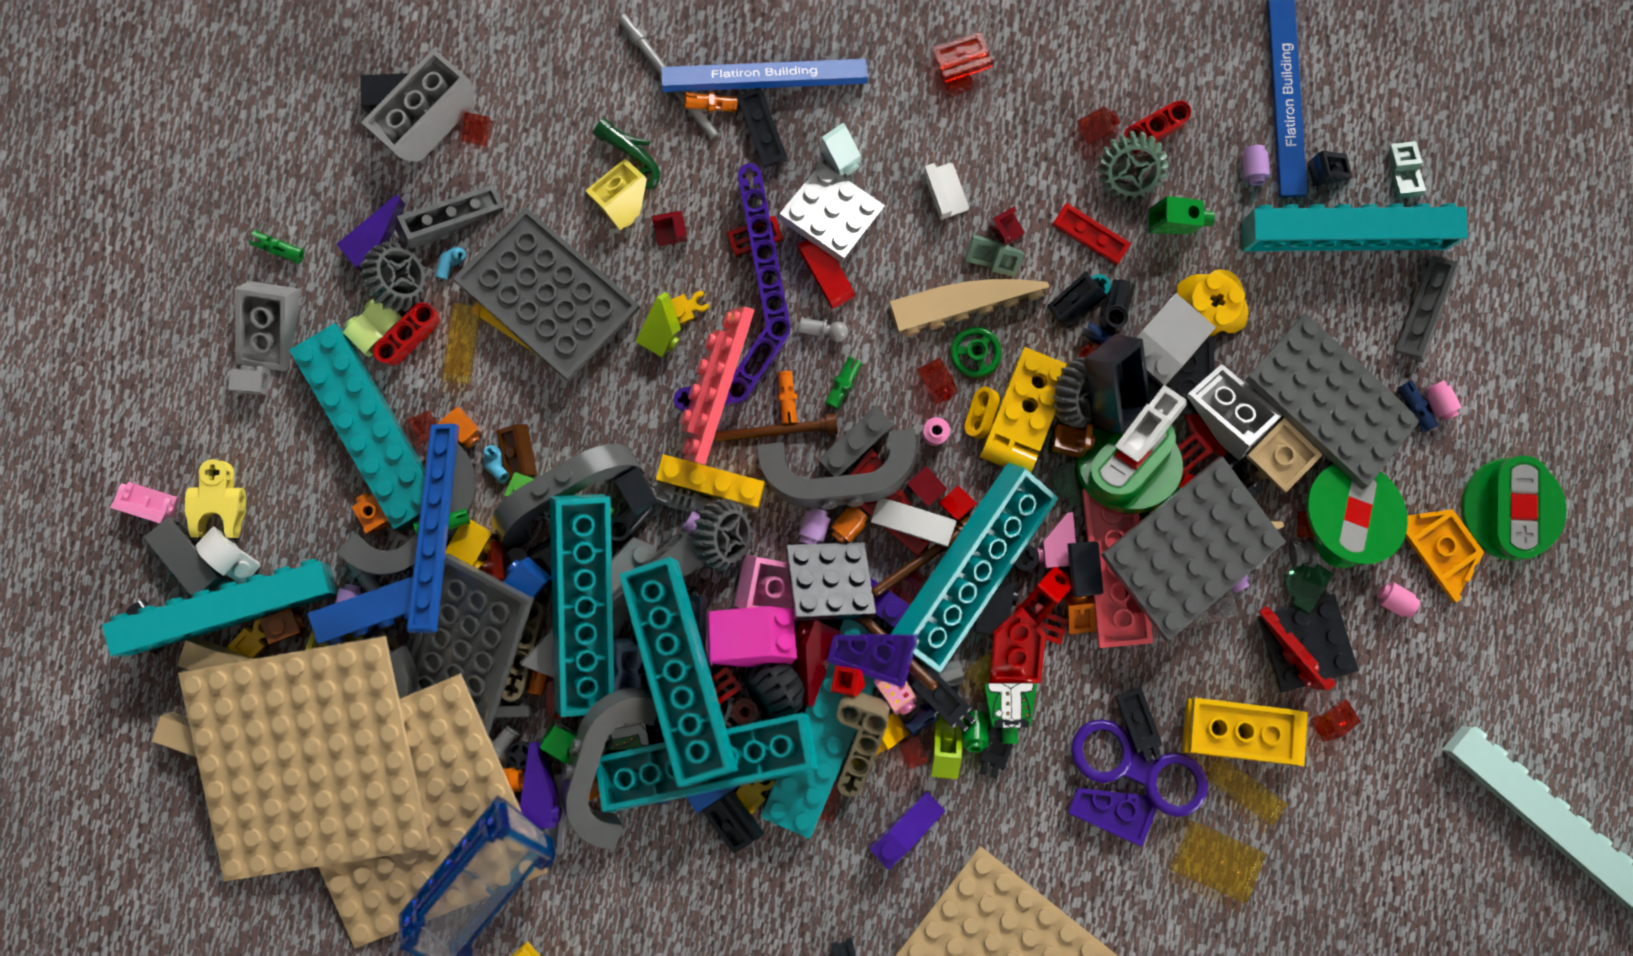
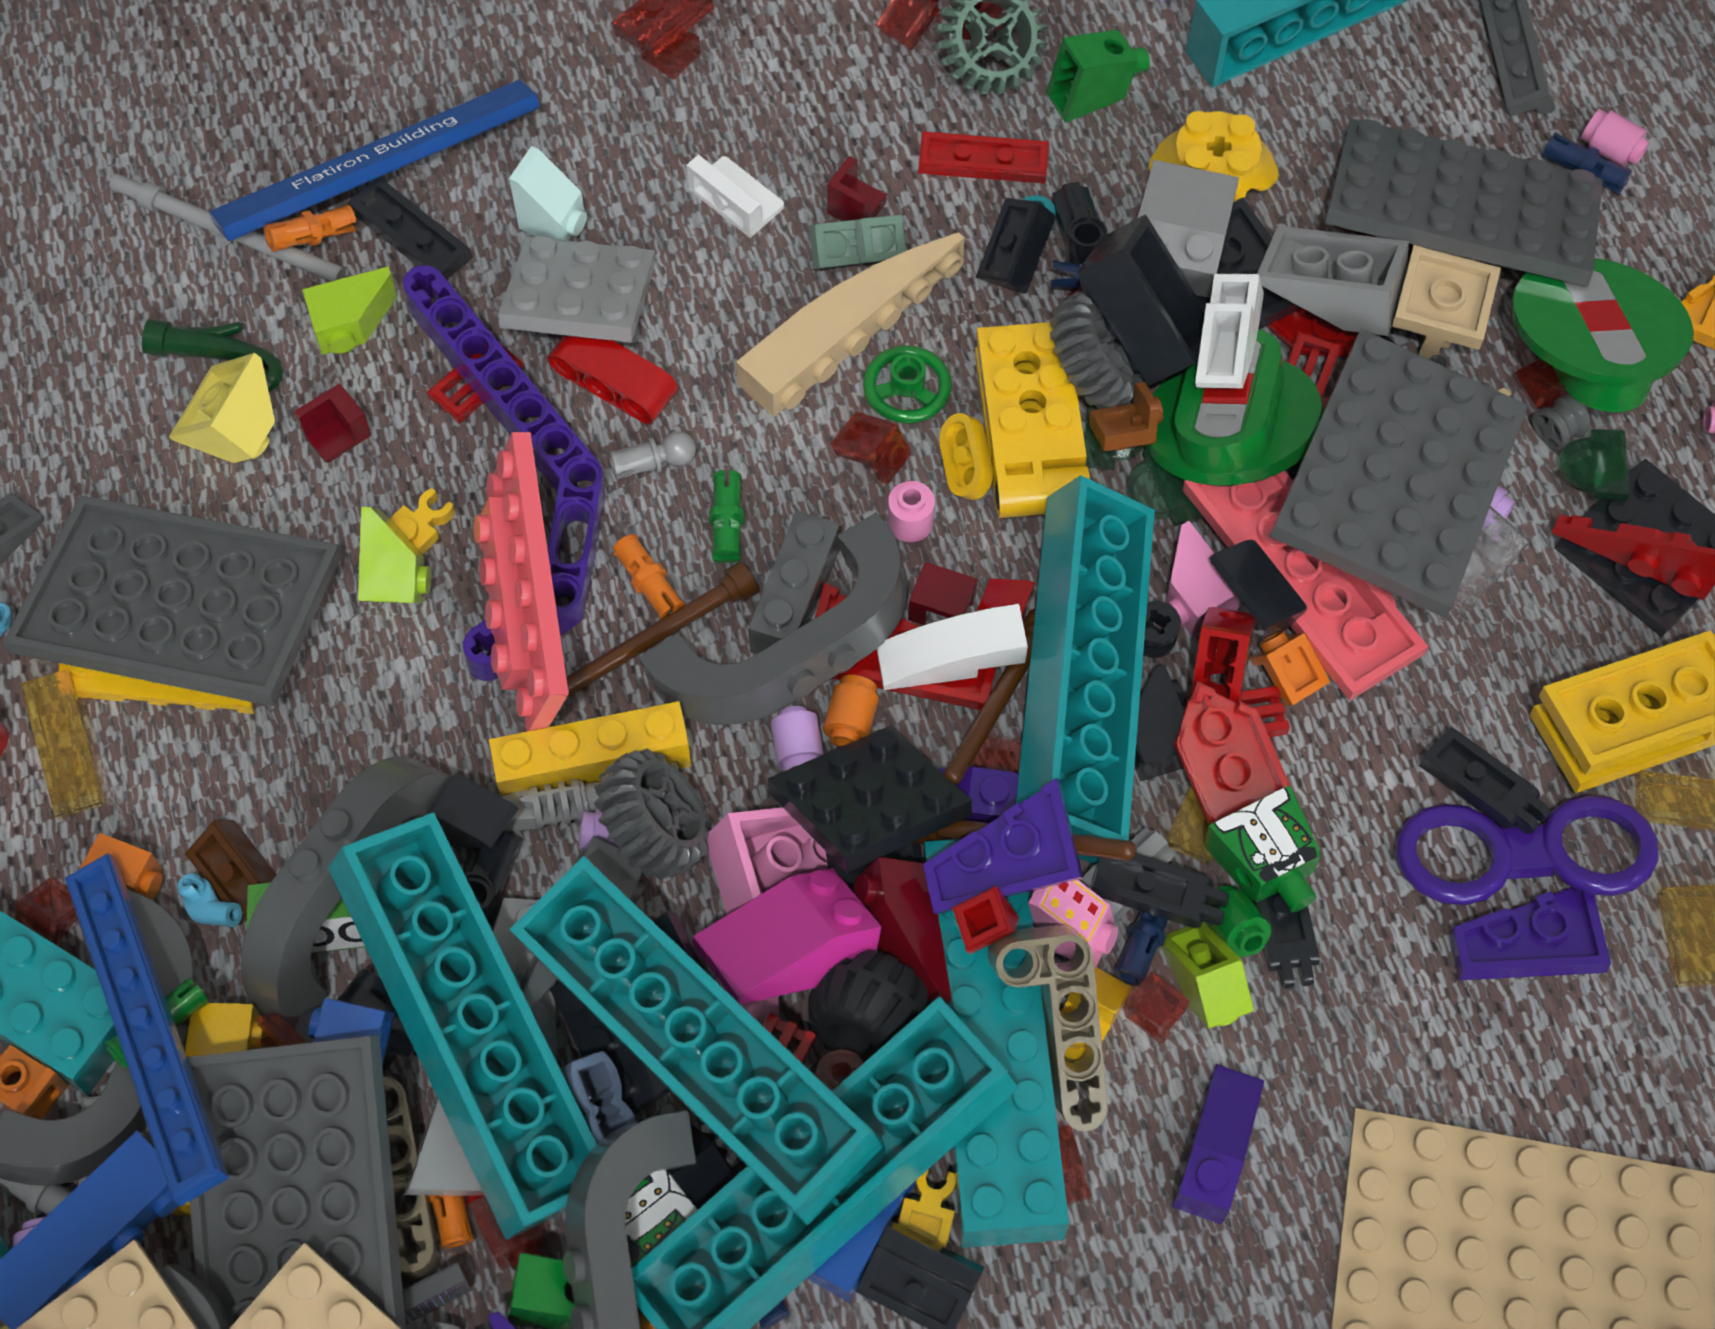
camera: 30 degrees left, 20 degrees down
(707, 163) = (349, 309): none -> lime slope

